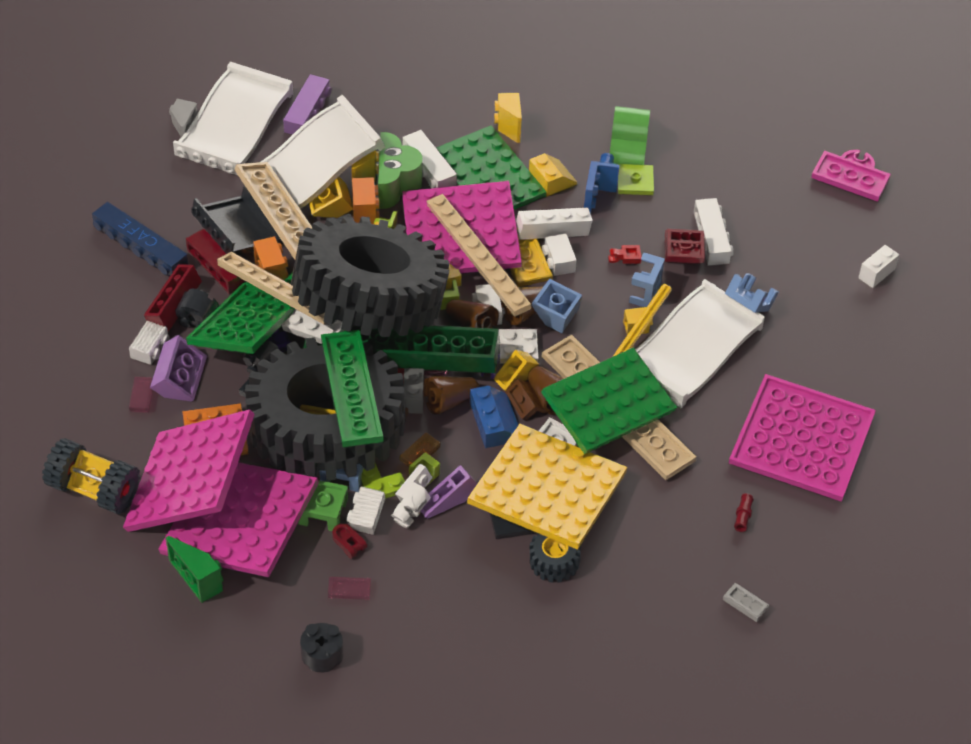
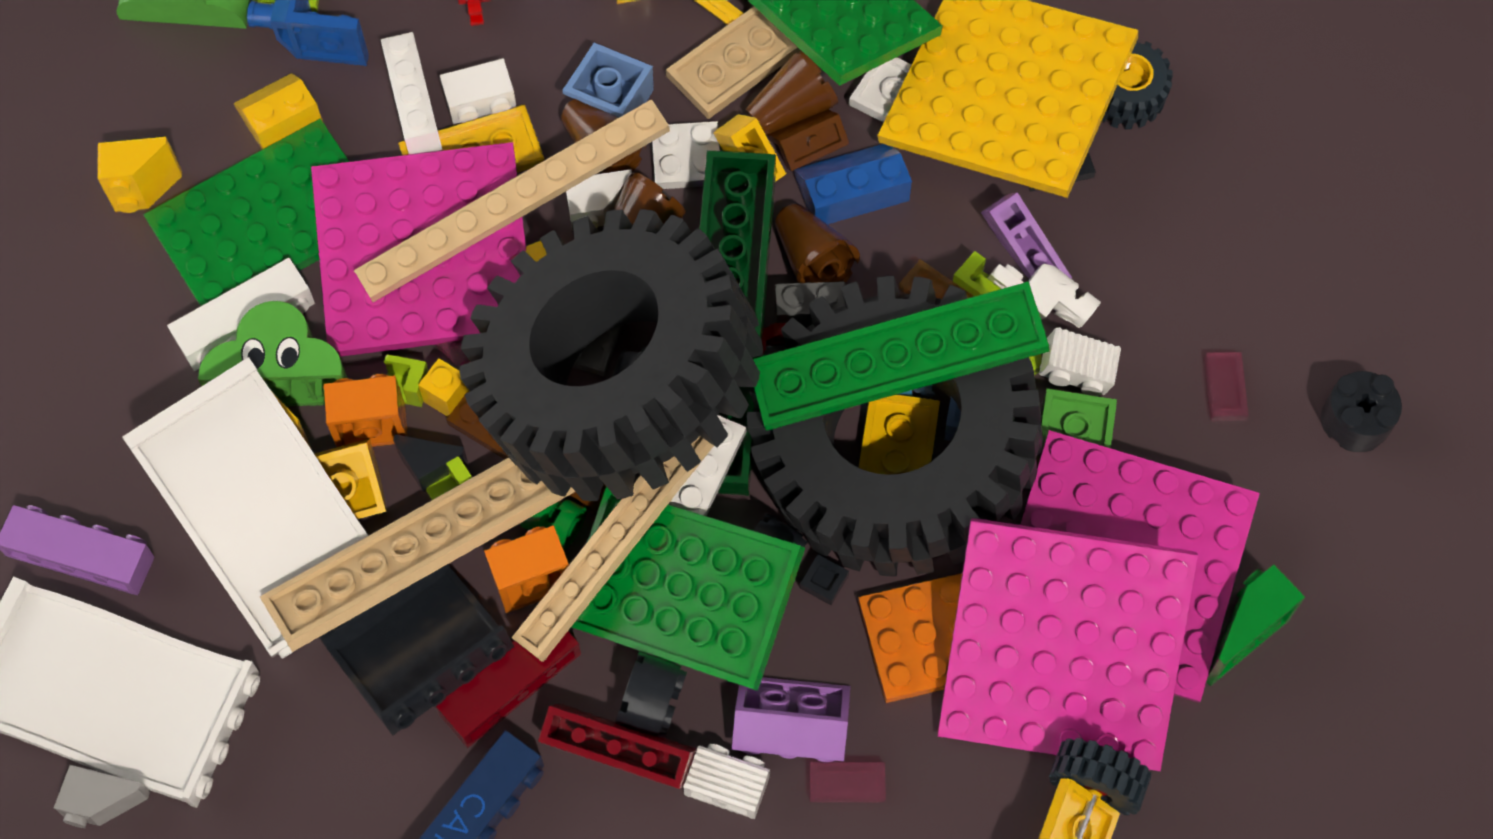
camera: 90 degrees left, 15 degrees up
(343, 535) = (1130, 398): dark red plate -> none

